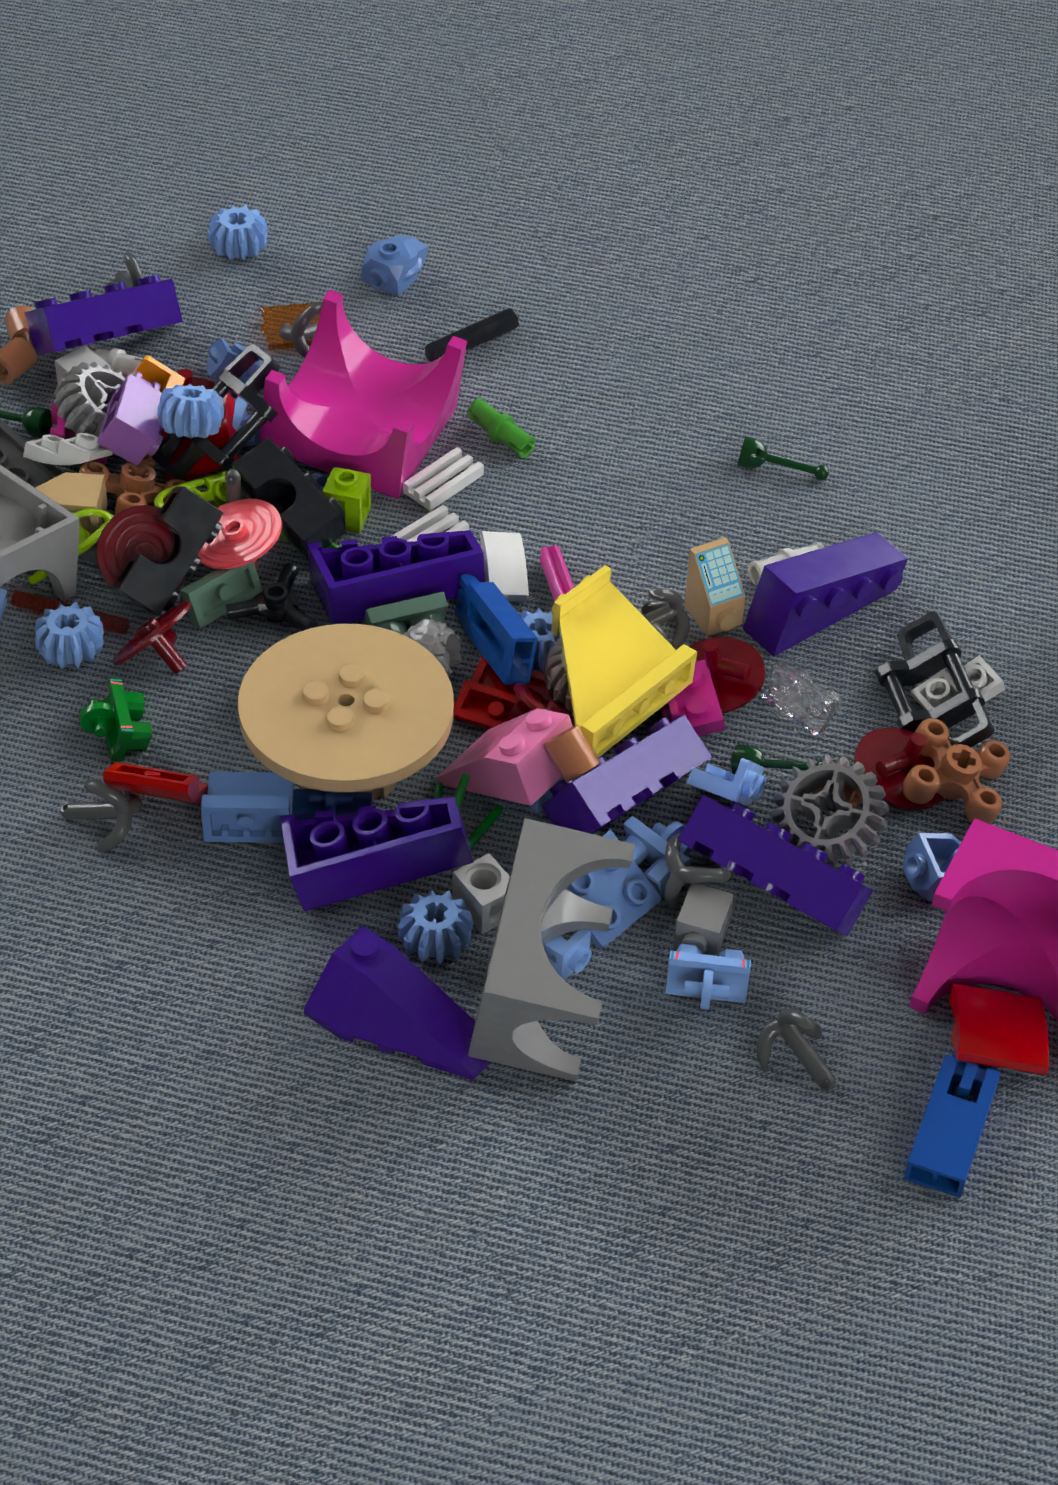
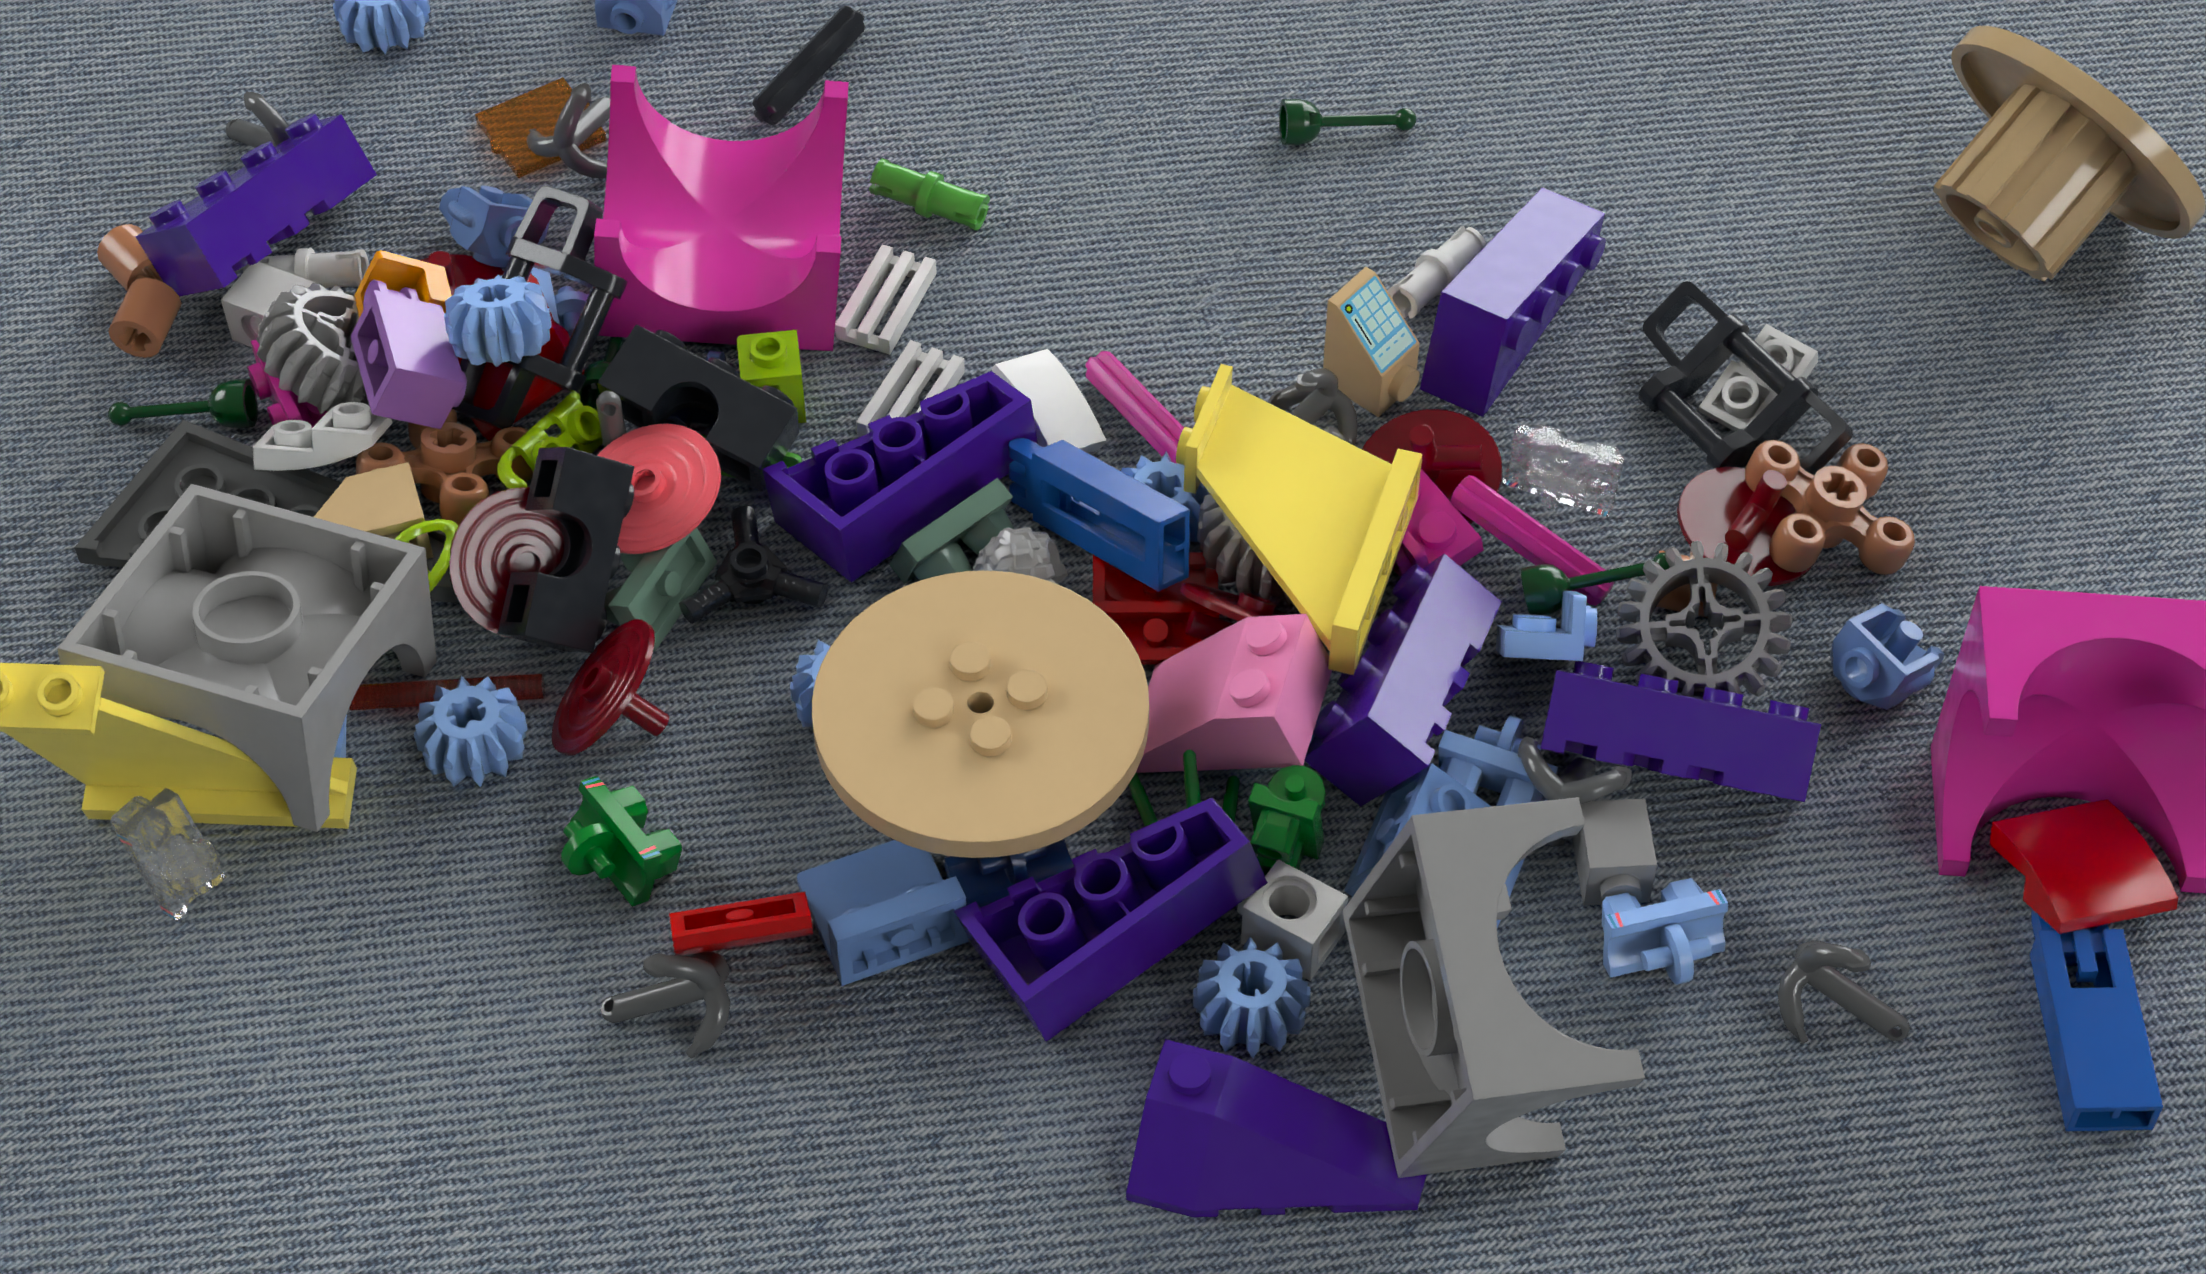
camera: 20 degrees left, 5 degrees up
(501, 833) = (1287, 817): none -> green hips
(571, 753) = (1339, 671): nougat gear -> none
(753, 727) = (1525, 534): none -> dark pink axle

